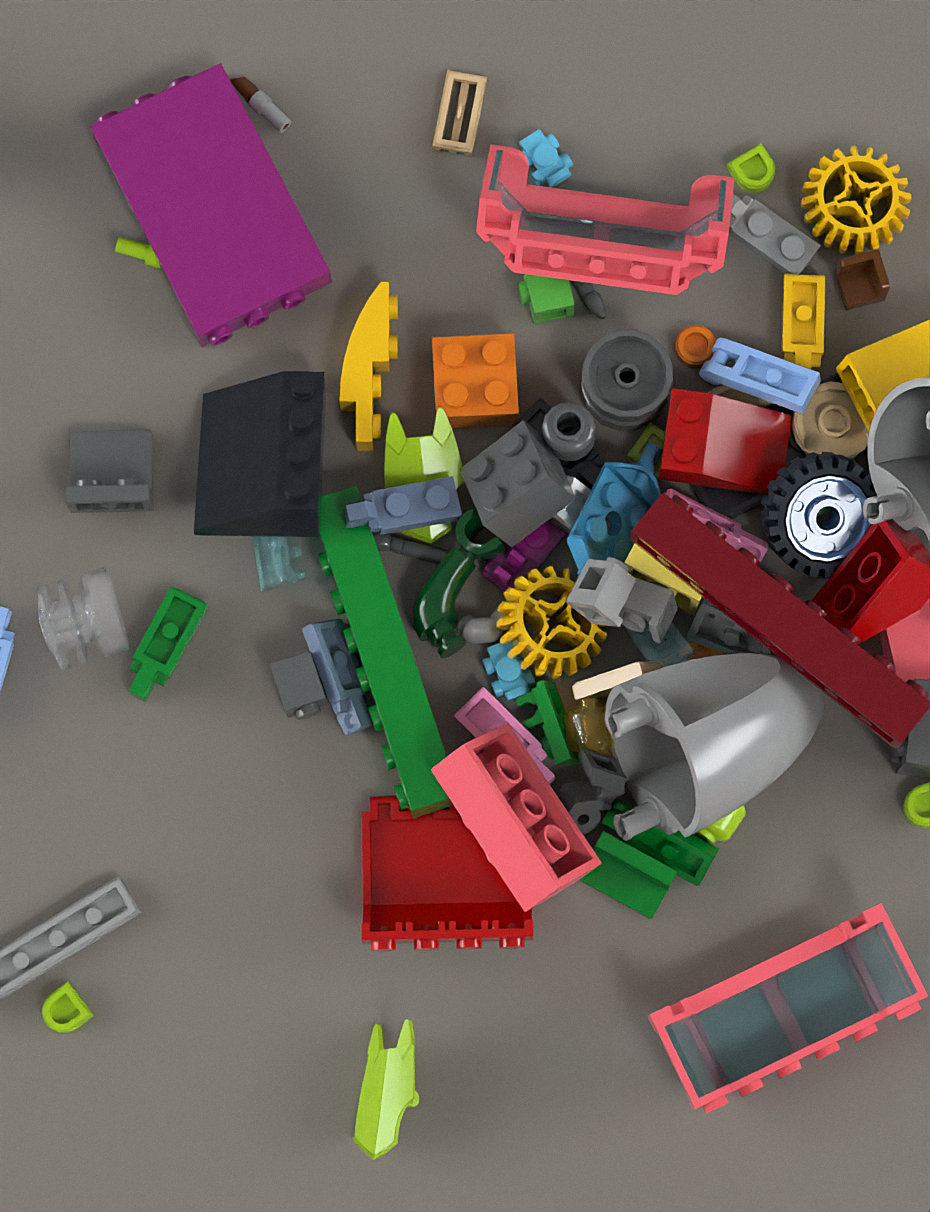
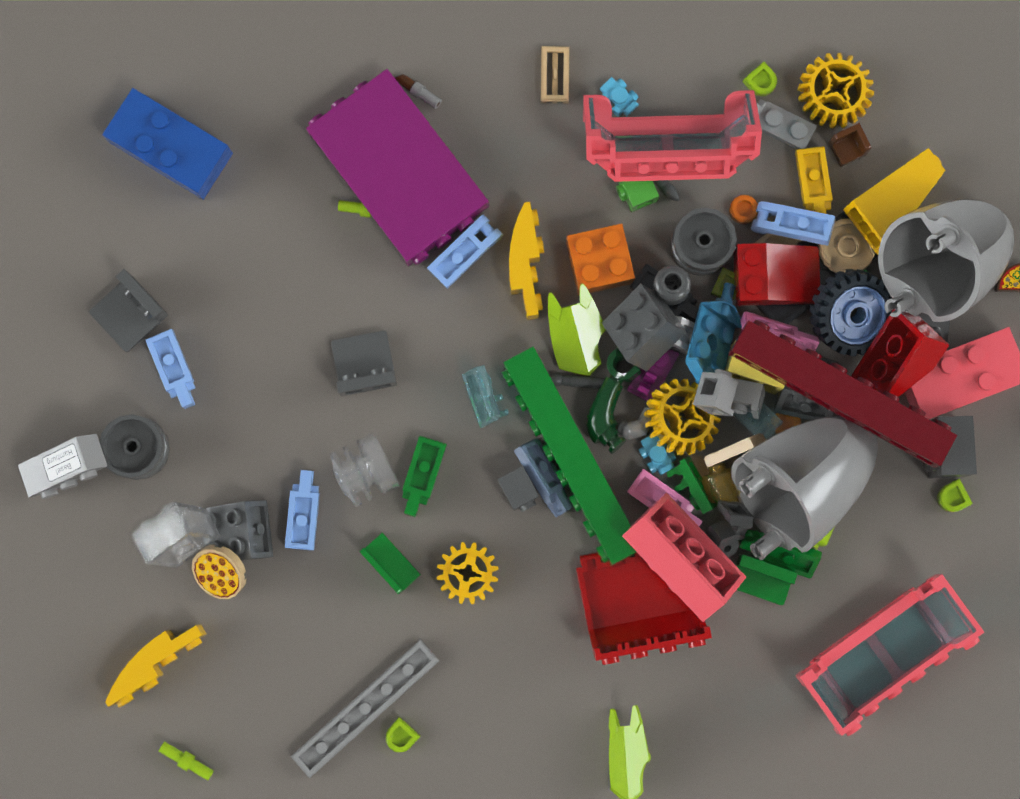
camera: 10 degrees left, 5 degrees up
(96, 760) = (390, 563): none -> green panel
(211, 774) = (464, 586): none -> yellow gear
(262, 457) = (465, 338): black slope -> none
(284, 338) = (464, 252): none -> light blue plate
(406, 507) = (570, 355): sand blue hinge -> none

